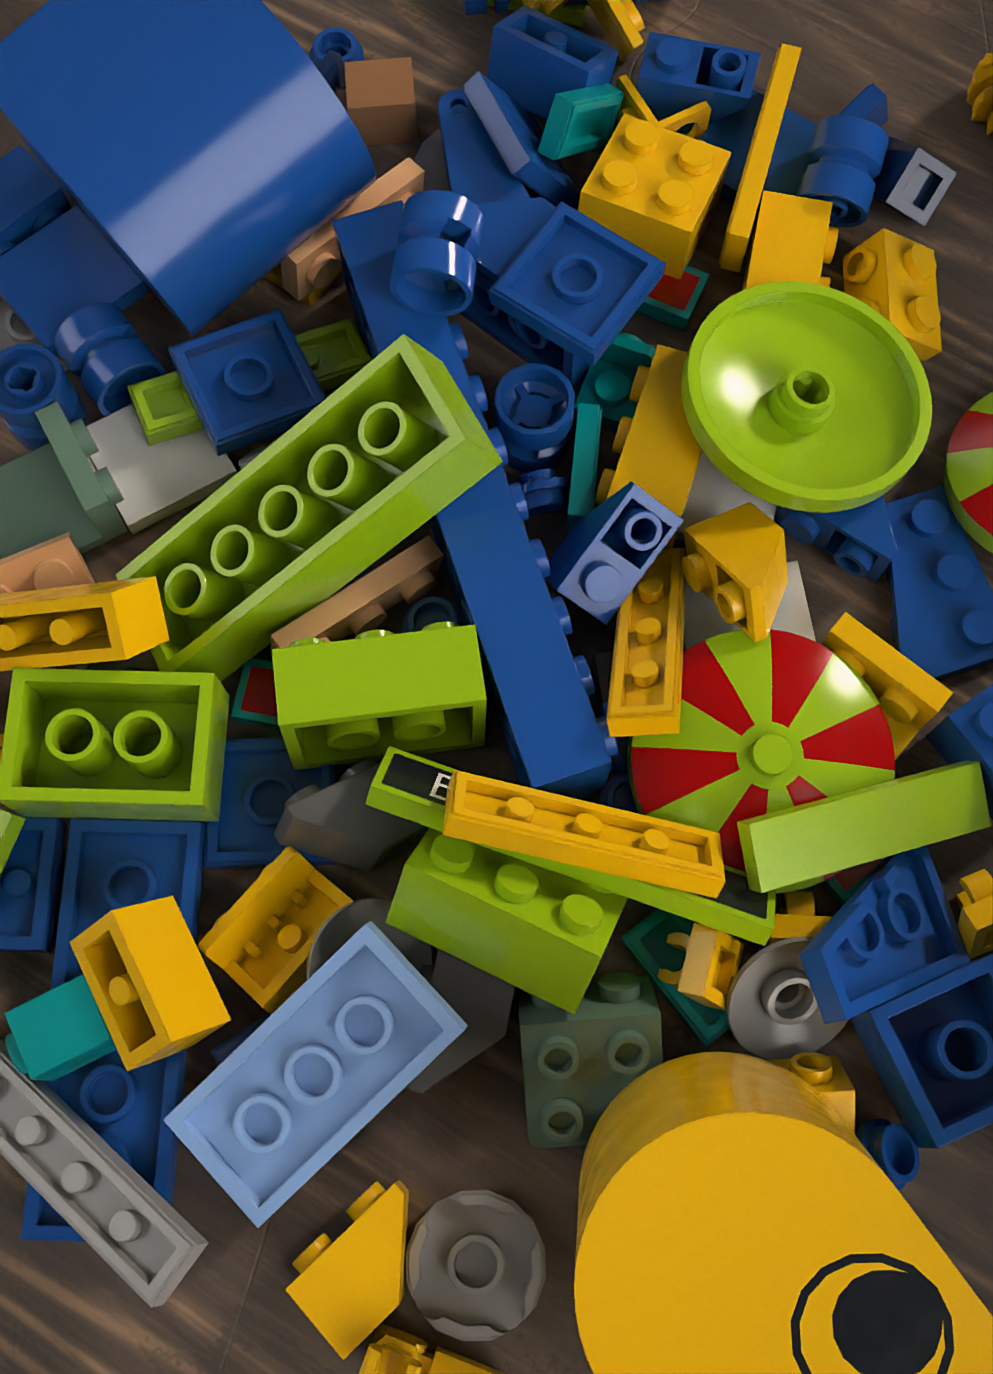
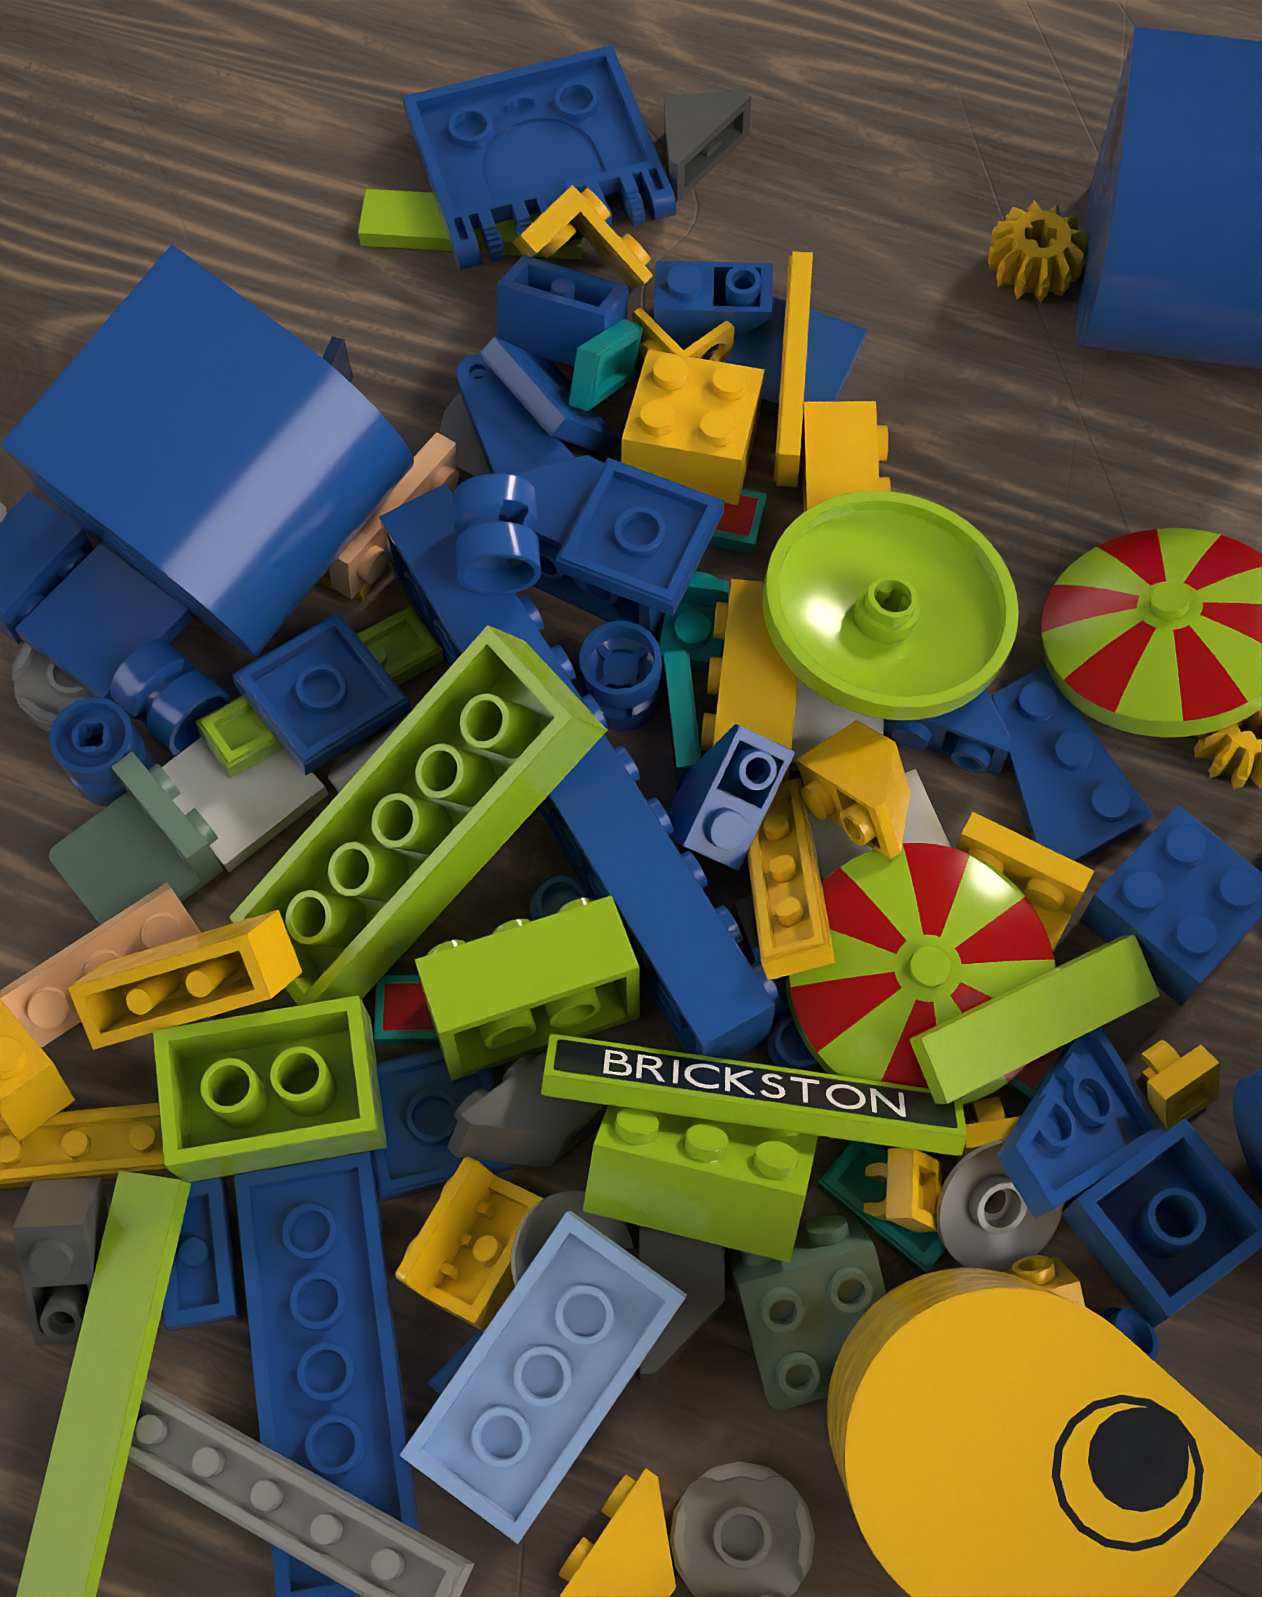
camera: 10 degrees left, 5 degrees down
(57, 1032) = (279, 1386): teal brick -> none
(149, 981) = (358, 1317): yellow brick -> none
(339, 41) = (335, 323): blue plate -> none
(364, 602) = (488, 896): light nougat plate -> none
(381, 100) = (393, 374): medium nougat brick -> none
(544, 491) = (647, 746): blue plate -> none
(583, 834) = (762, 1080): yellow tile -> none
(843, 163) = (878, 361): blue wheel -> none
(870, 105) = (886, 305): blue tile -> none
(899, 283) = (959, 471): yellow bracket -> none
(912, 181) = (941, 362): panel -> none

